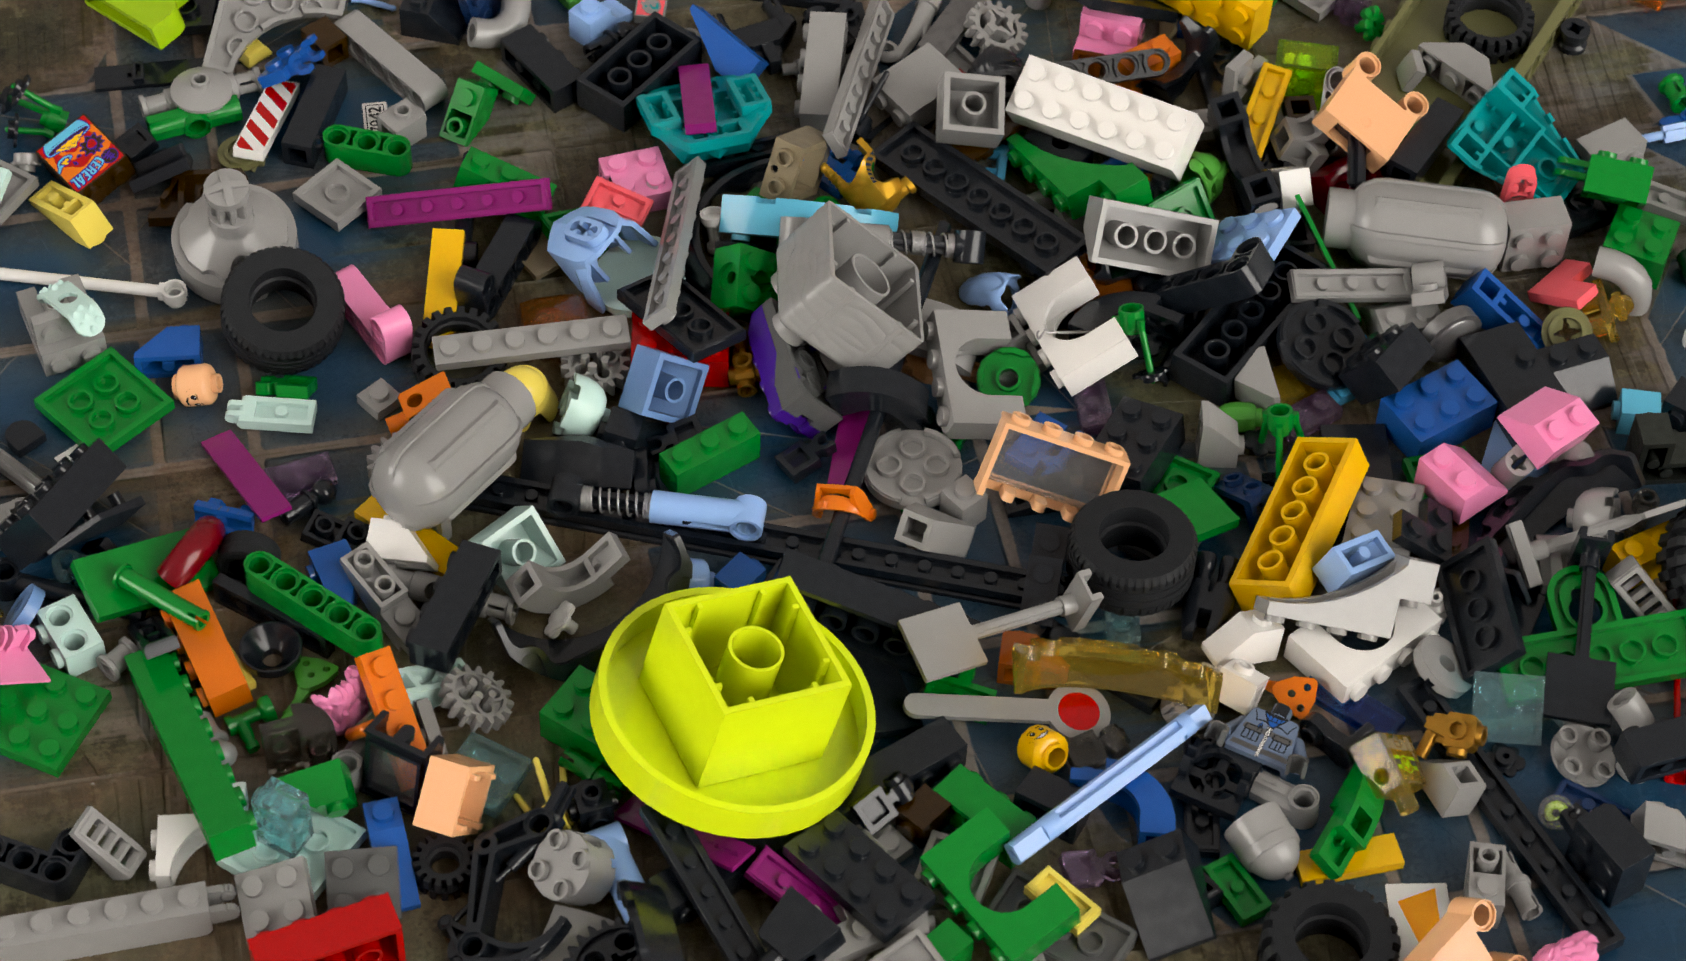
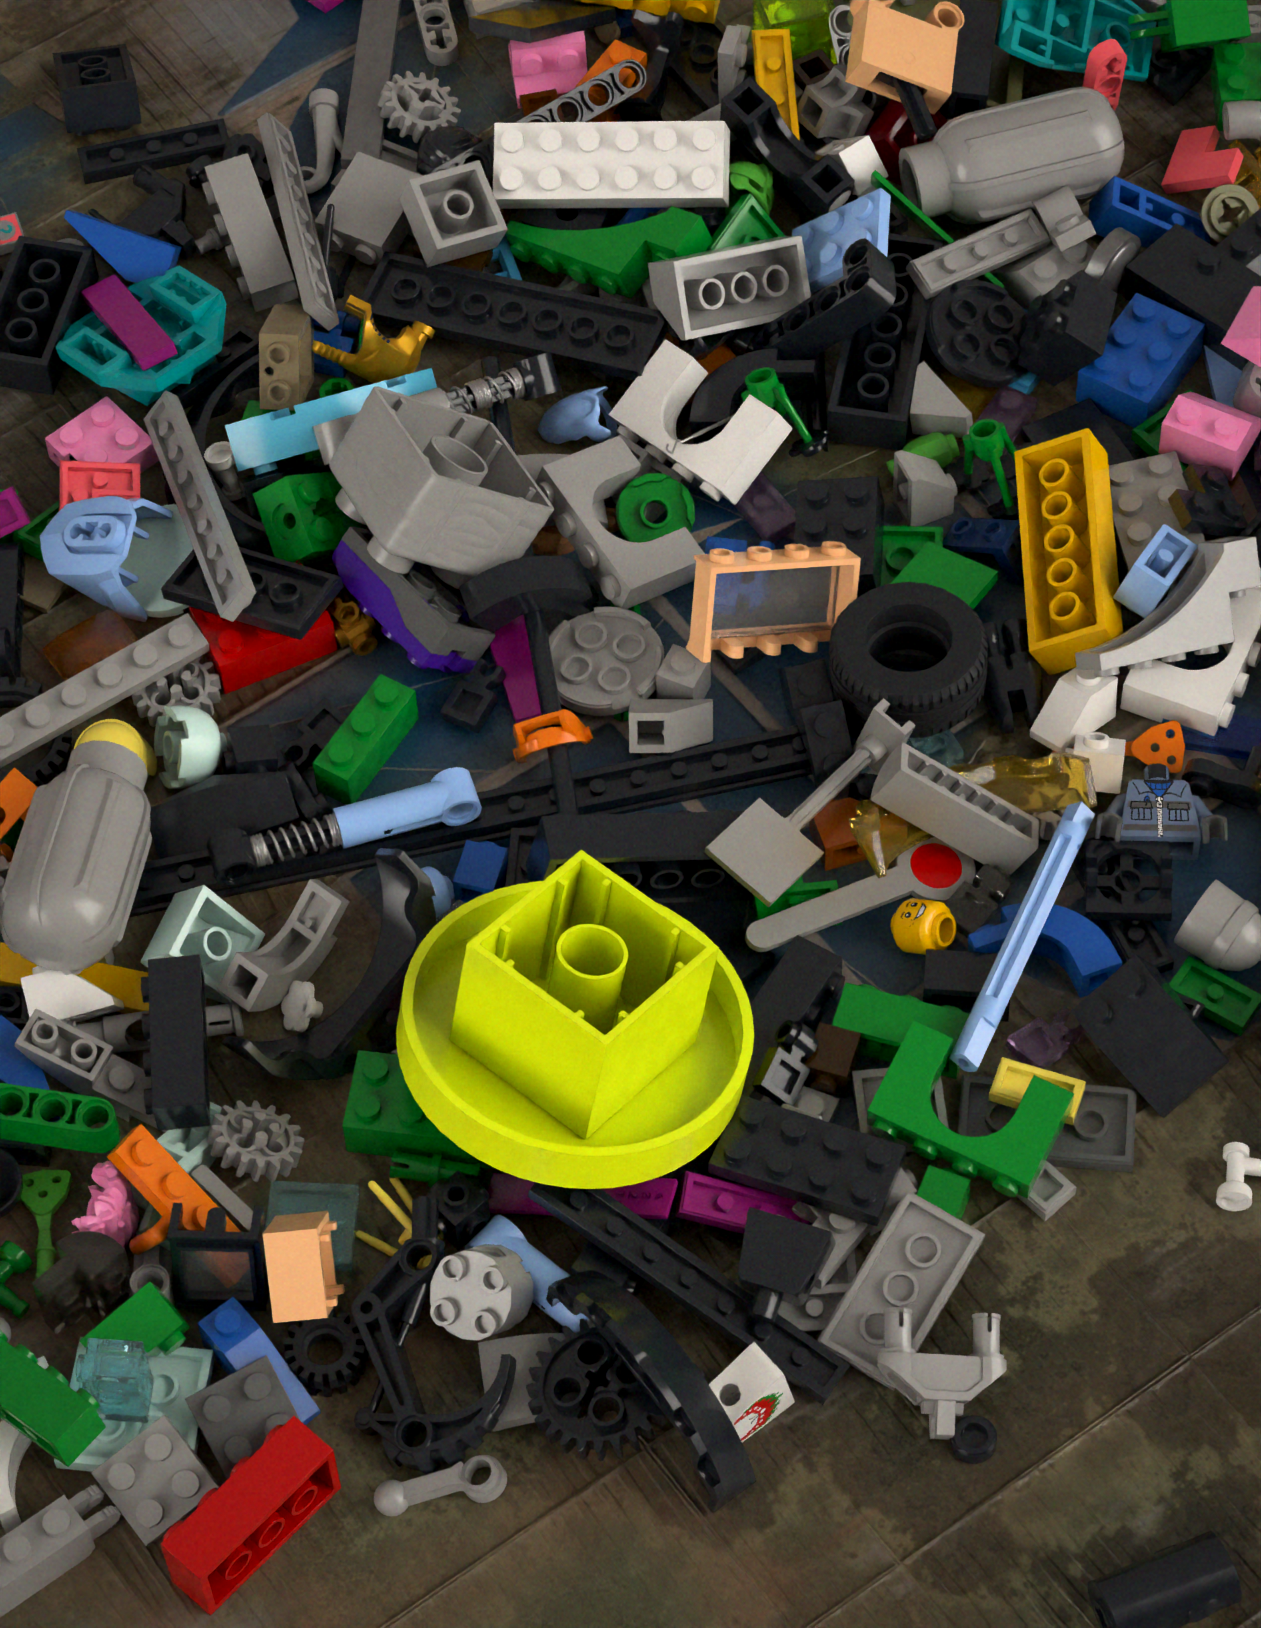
camera: 20 degrees left, 5 degrees up
(662, 385) = (271, 680): medium blue slope -> none
(1107, 673) = (955, 809): none -> light grey brick
(1289, 798) = (1202, 867): light grey piece -> none
(1535, 233) = (1147, 111): light grey brick -> none

